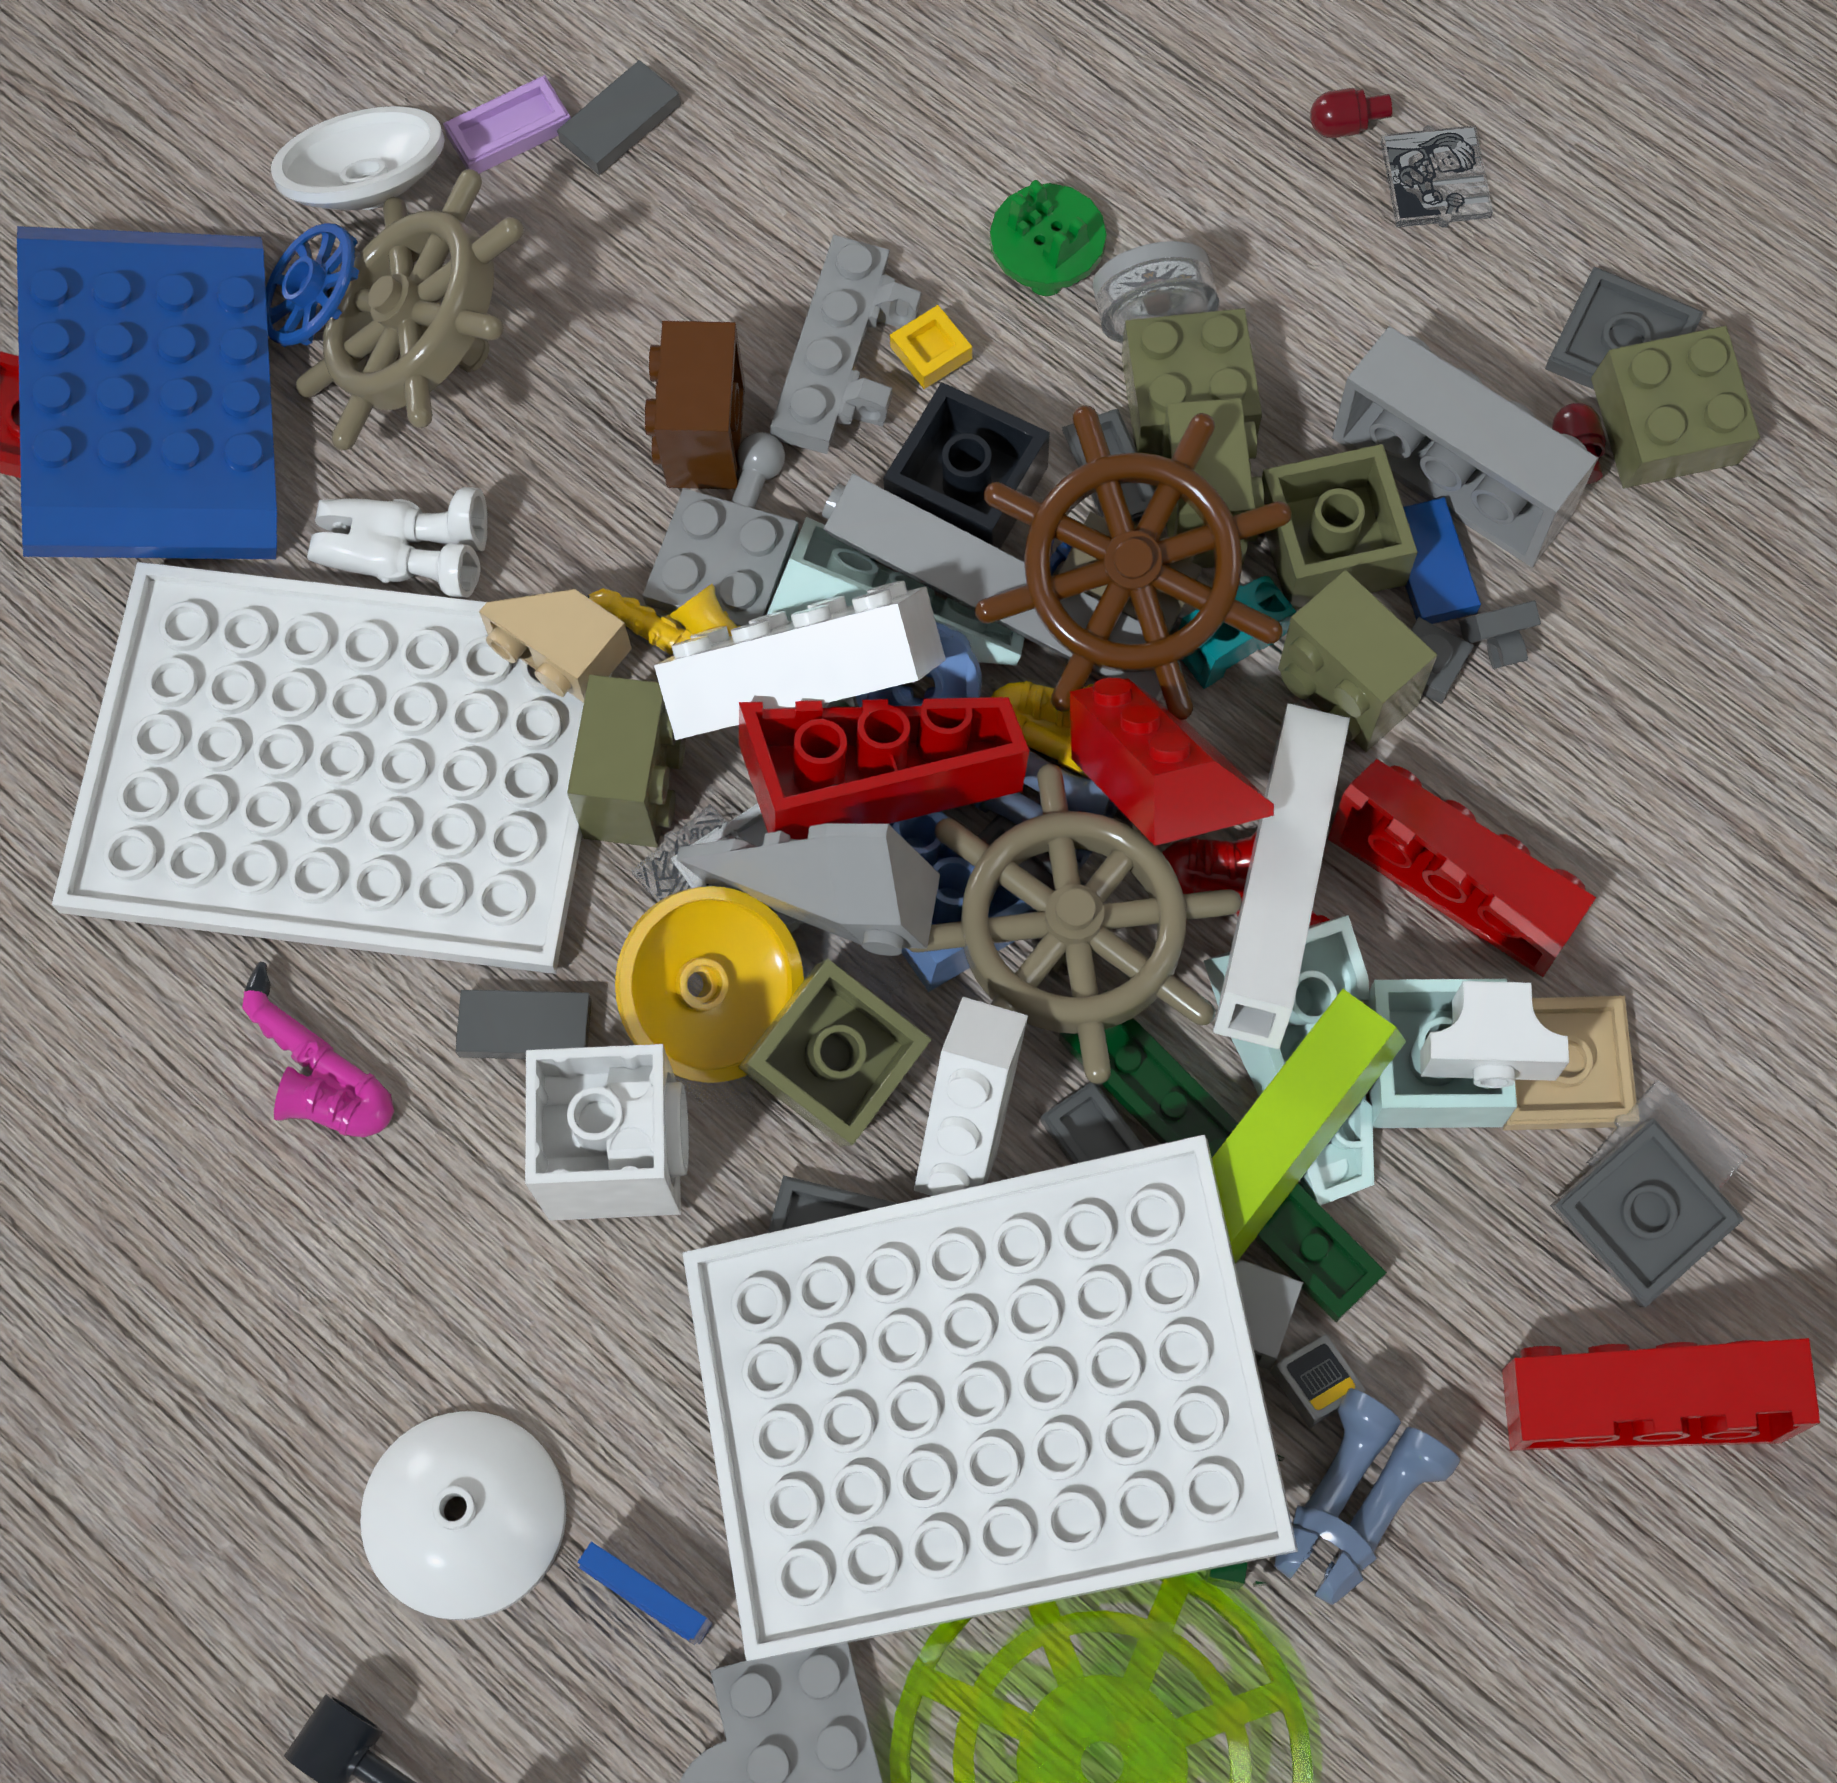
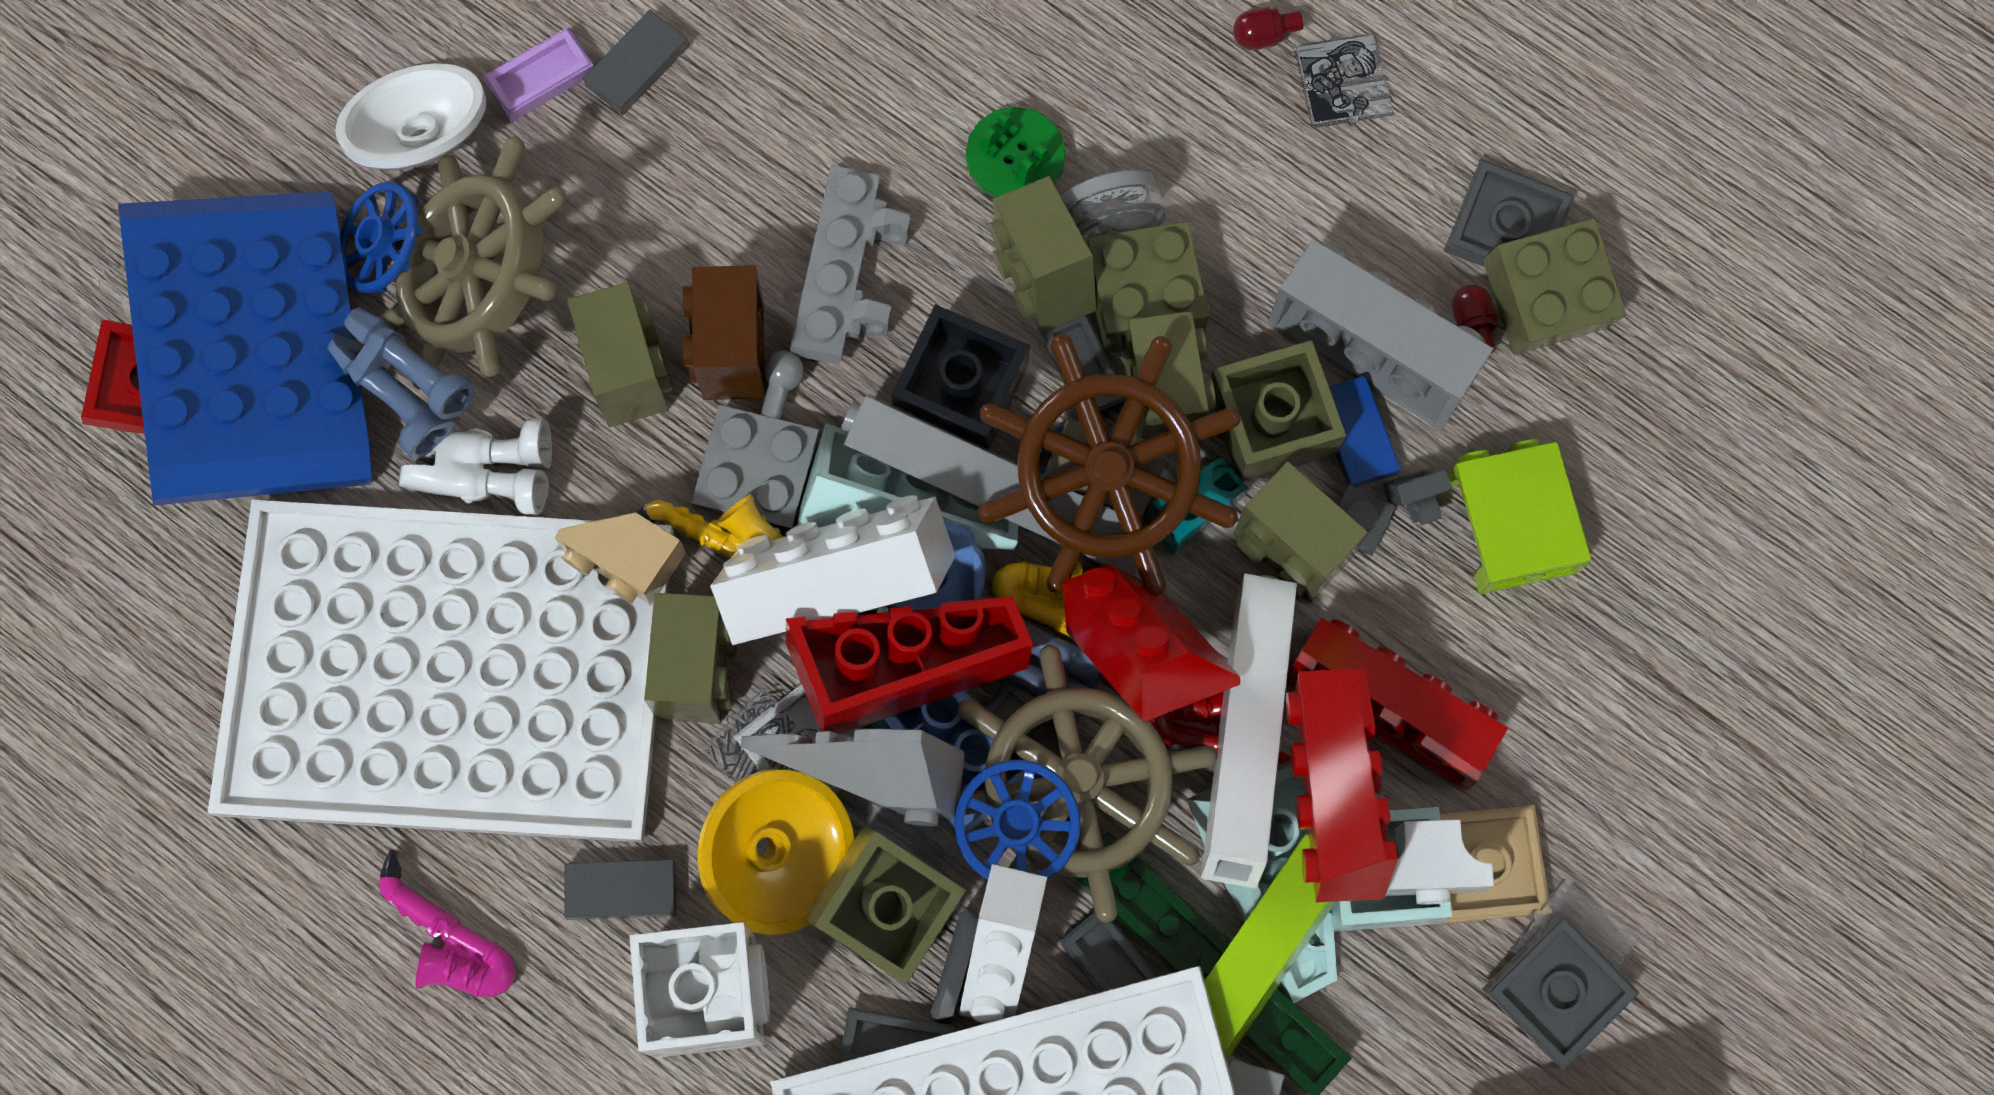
camera: 10 degrees left, 5 degrees up
(369, 447) = (447, 394): none -> sand blue piece
(574, 421) = (621, 353): none -> olive brick
(905, 1155) = (955, 968): none -> dark grey tile
(931, 346) = (922, 262): yellow plate -> none
(997, 952) = (1017, 820): none -> blue wheel
(1071, 335) = (1043, 255): none -> olive brick
(1389, 933) = (1340, 780): none -> red wedge
(1624, 664) = (1521, 515): none -> lime panel

